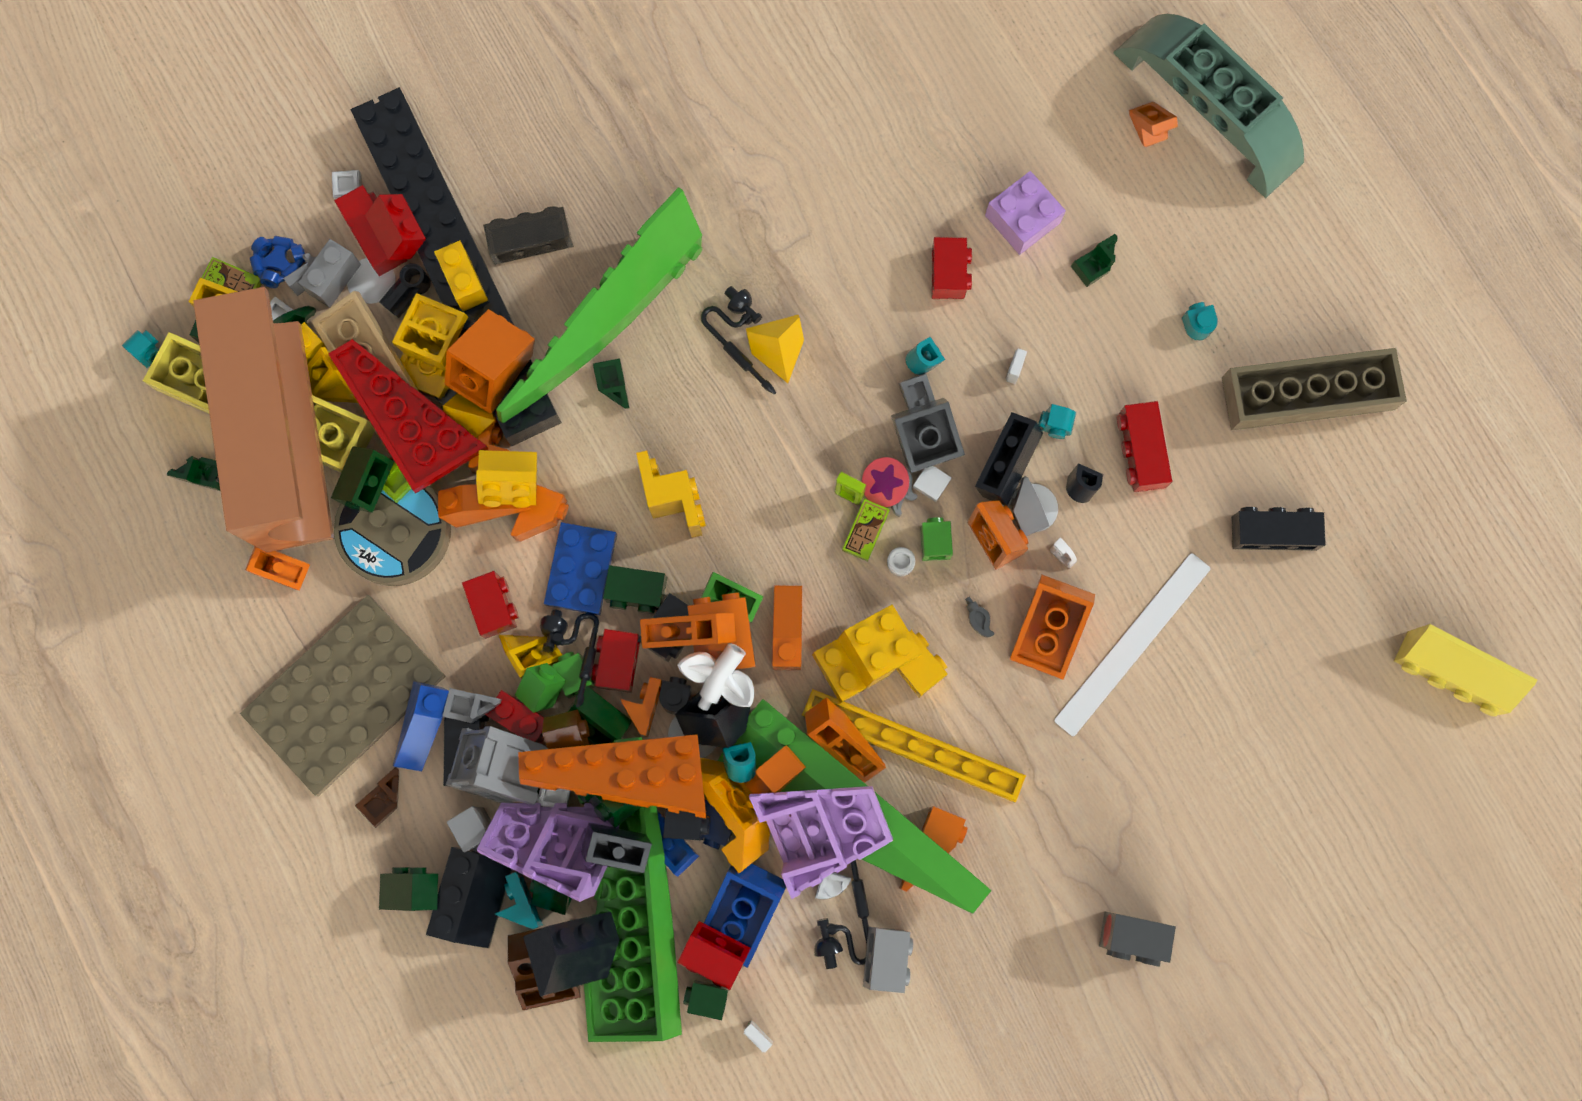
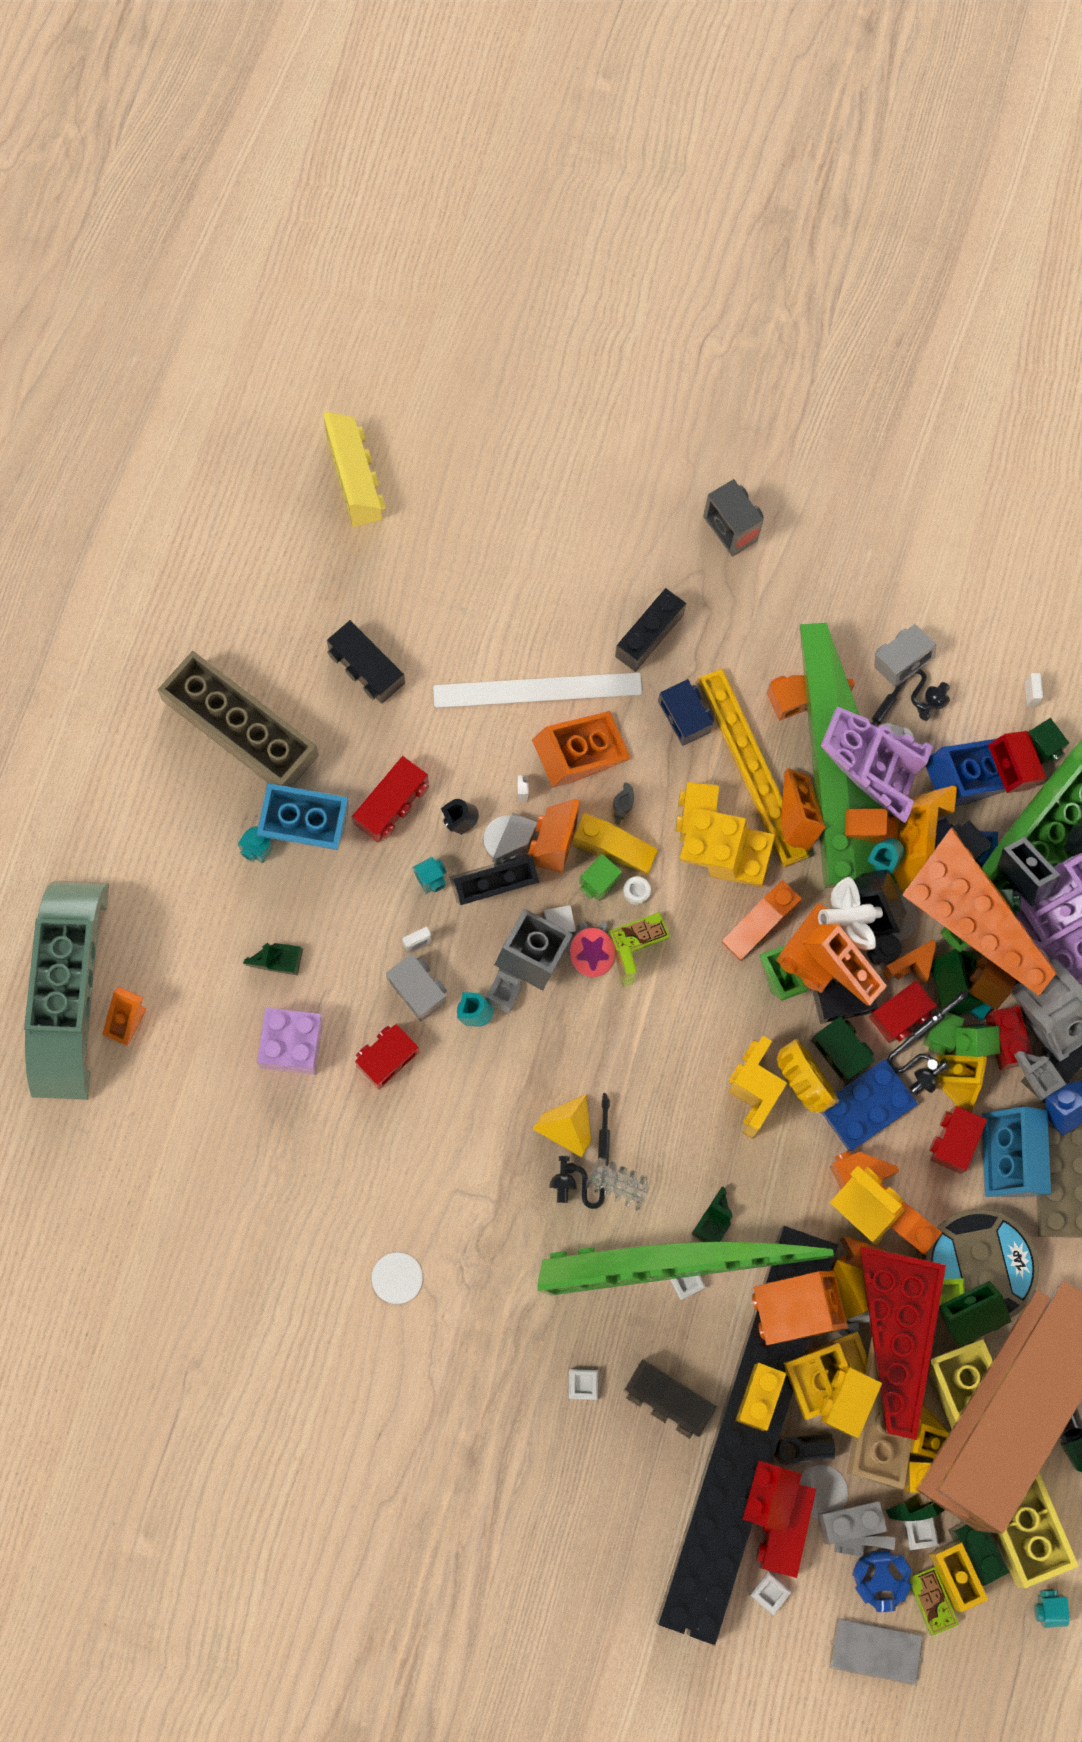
camera: 140 degrees left, 5 degrees down
(243, 217) = (876, 1651): none -> flat silver piece
(394, 327) = (850, 1401): none -> yellow brick
(436, 635) = (1016, 1153): none -> dark azure slope
(596, 193) = (583, 1384): none -> white tile
(640, 536) = (806, 1077): none -> yellow gear
(702, 336) = (618, 1182): none -> clear piece
(789, 142) = (397, 1278): none -> white sticker
(952, 576) = (614, 843): none -> yellow slope
(981, 334) = (417, 987): none -> light grey brick
(1006, 735) = (685, 712): none -> dark blue brick
(1101, 774) = (650, 629): none -> black brick
(1188, 364) = (303, 816): none -> dark azure slope

